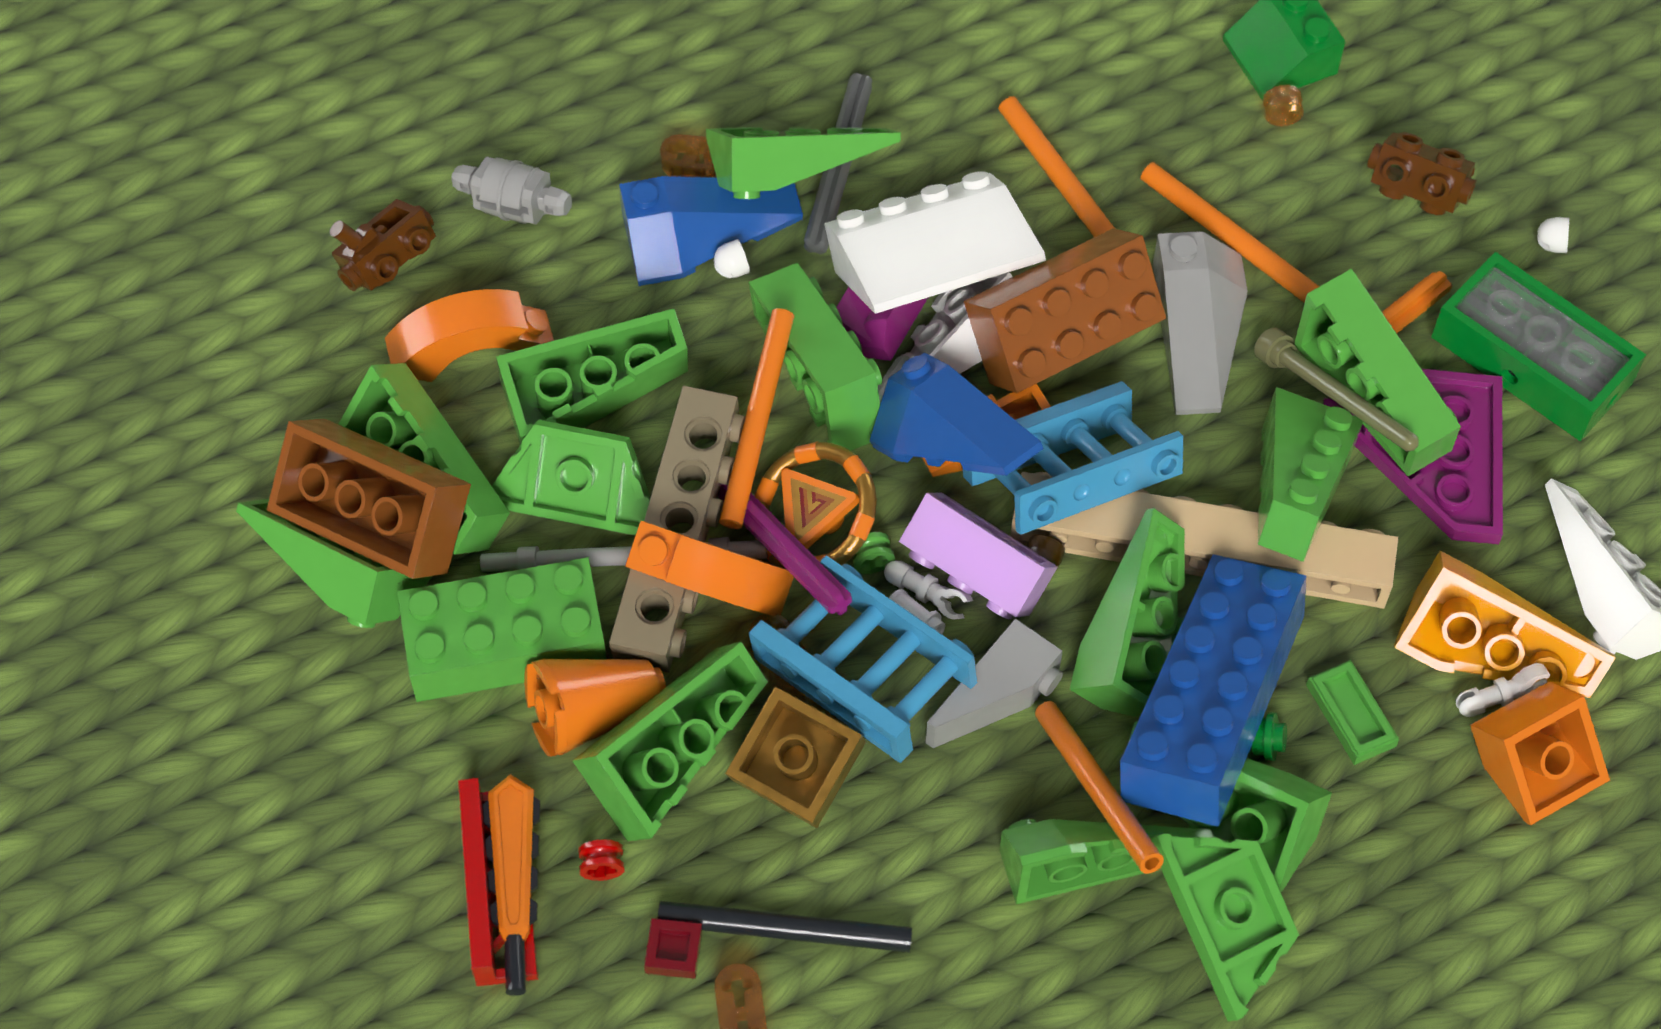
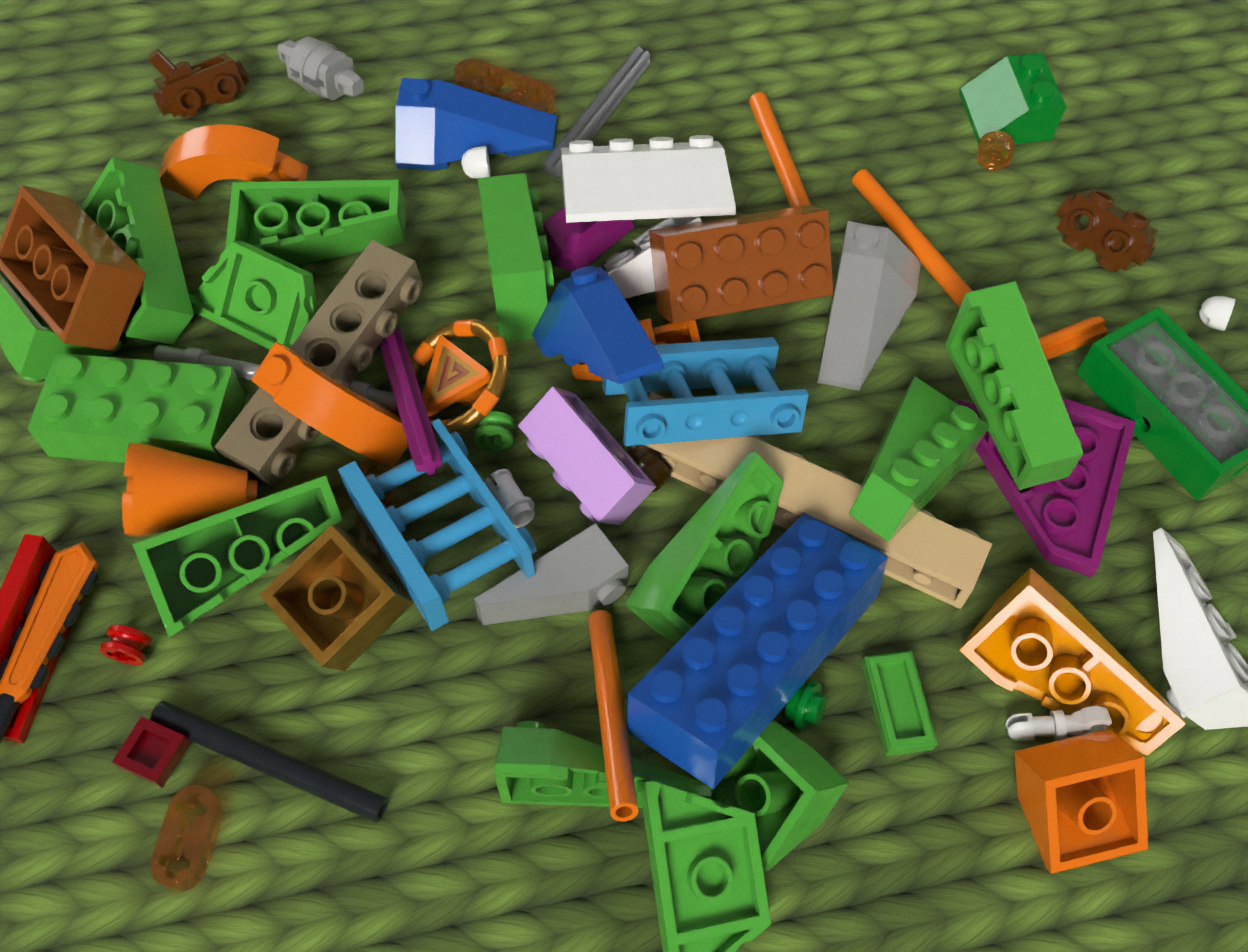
camera: 15 degrees right, 0 degrees up
(756, 419) = (429, 287): orange piece -> none
(761, 160) = (538, 86): bright green wedge -> none
(925, 587) = (532, 475): white piece -> none
(1278, 350) = (929, 348): olive piece -> none

